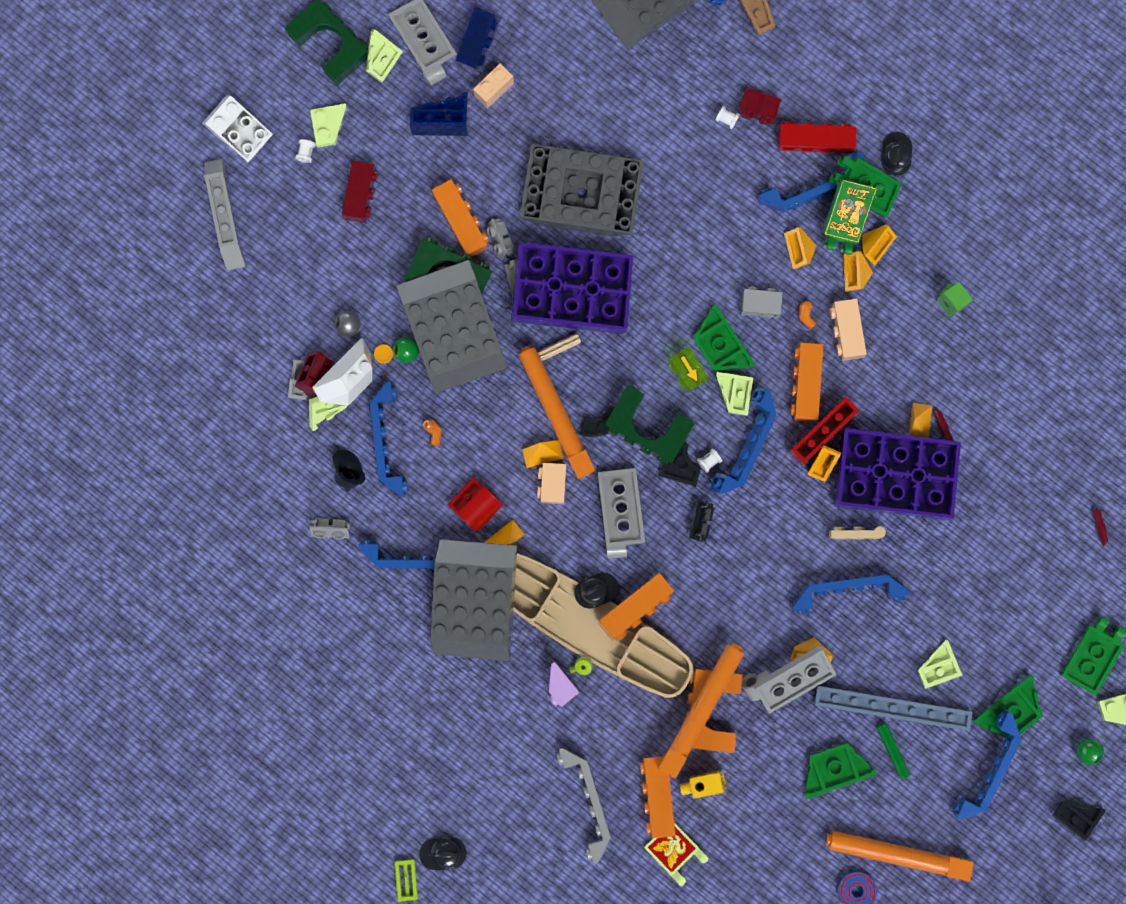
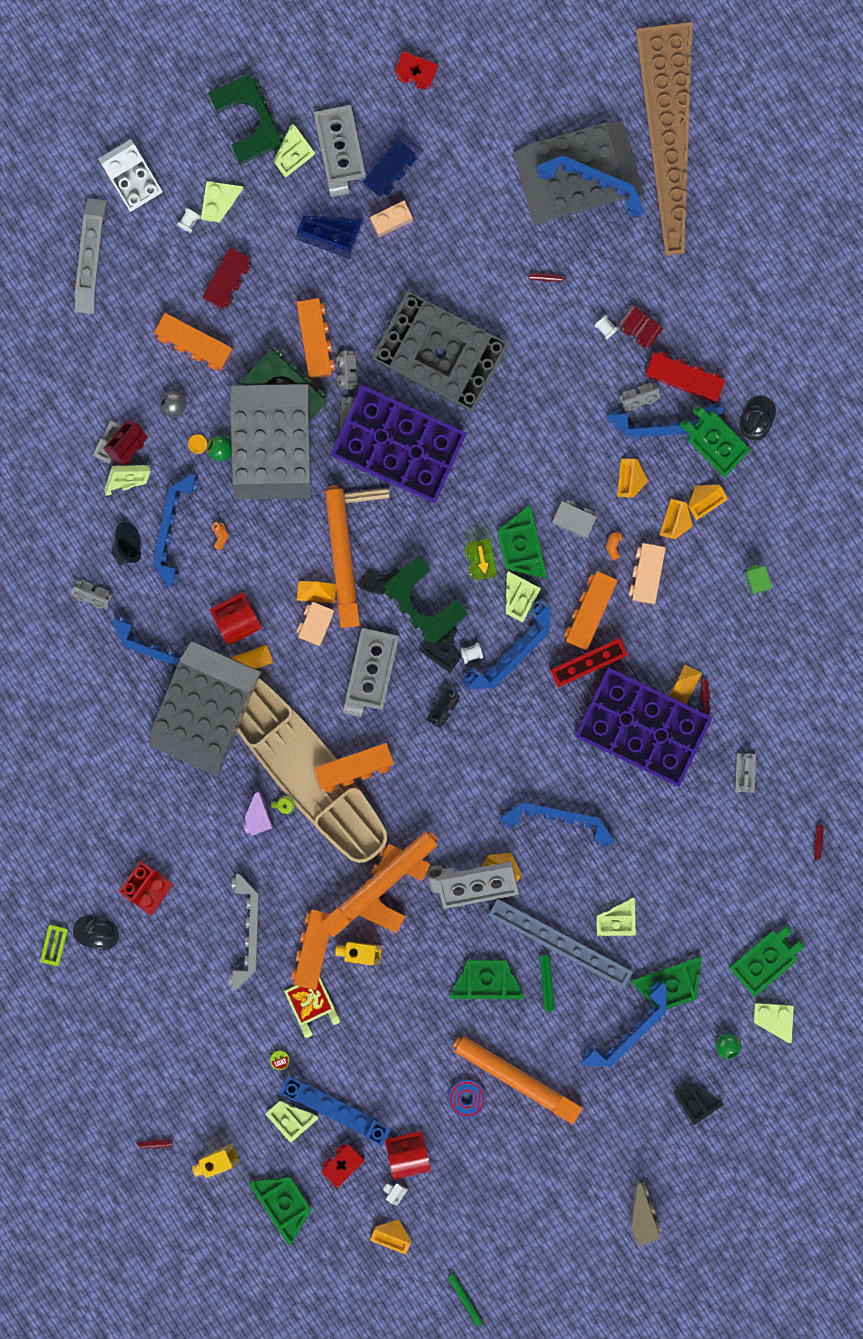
camera: 15 degrees right, 5 degrees up
(346, 377) = (155, 456): white wedge -> none
(347, 260) = (193, 341): none -> orange brick
(477, 793) = (146, 888): none -> red brick
(596, 590) = (322, 738): black piece -> none
(656, 91) = (546, 277): none -> dark red piece
(787, 165) = (648, 394): none -> light grey hinge
(824, 463) = (577, 693): light orange slope -> none
(847, 215) = (685, 463): green tile -> none
(857, 533) = (586, 769): tan plate -> none
(1007, 484) = (745, 773): none -> light grey hinge

